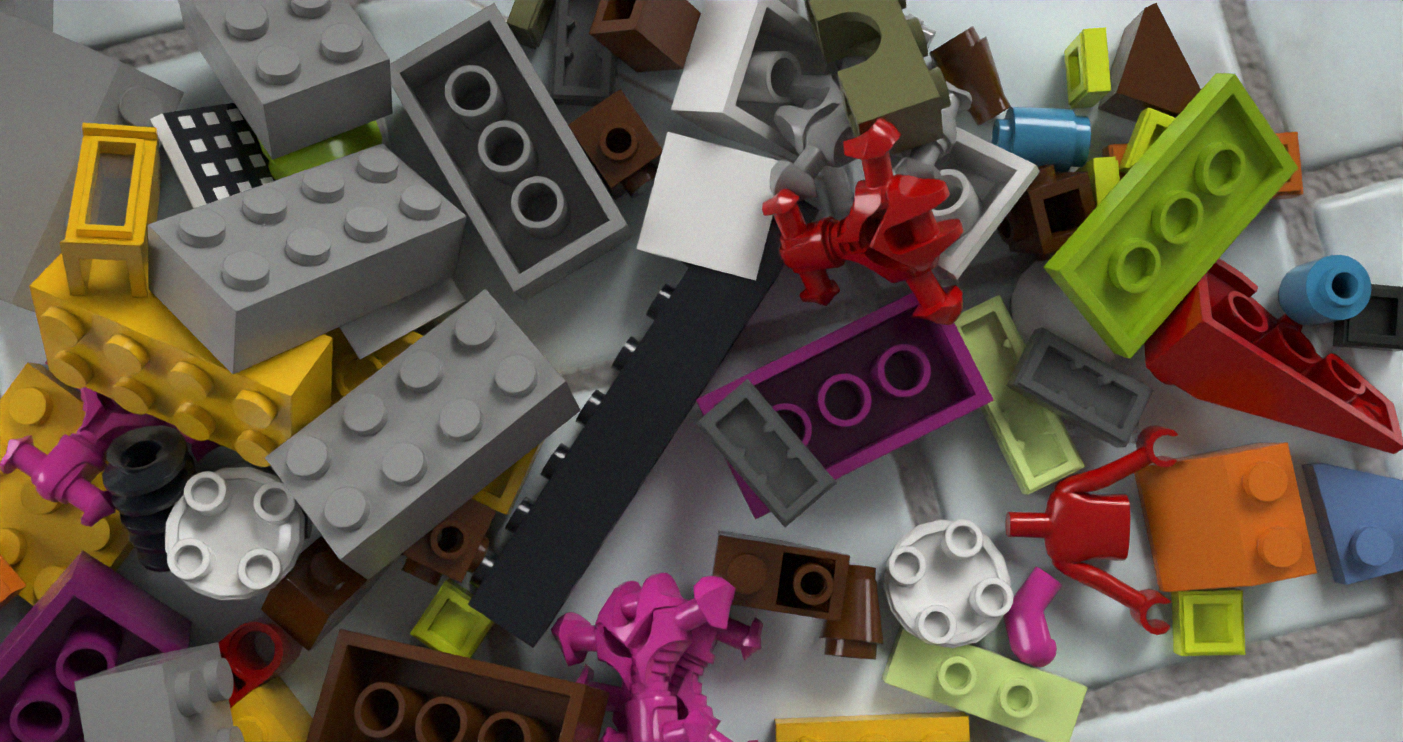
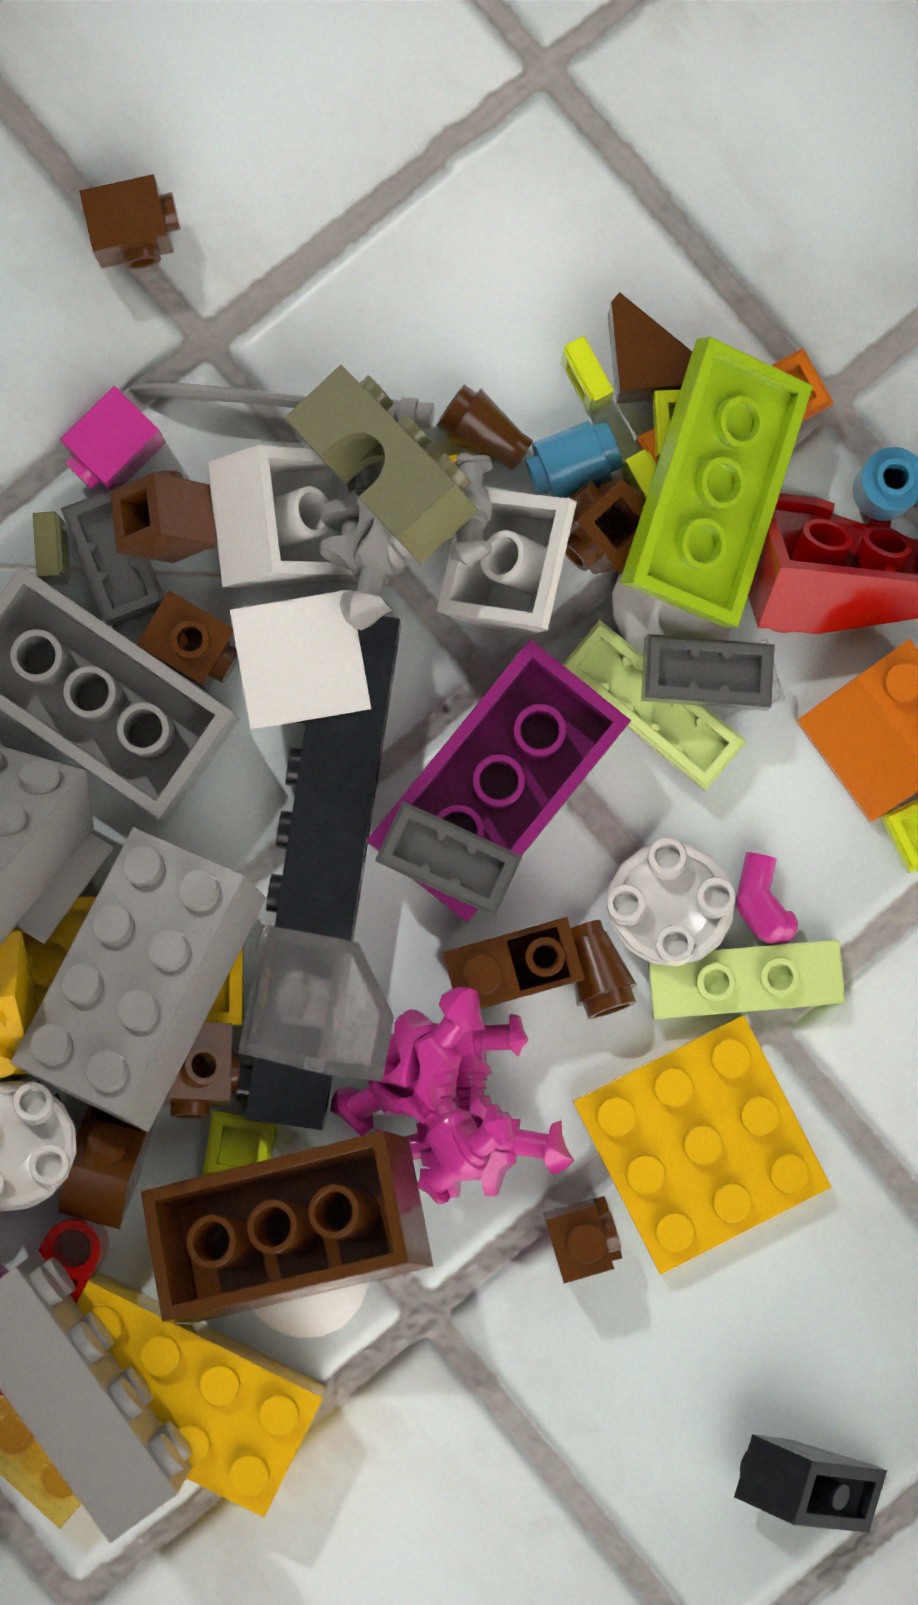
camera: 30 degrees left, 0 degrees up
(578, 536) = (316, 1006): none -> clear slope
(886, 231) = (463, 617): red piece -> none
(1096, 527) = (780, 791): red piece -> none

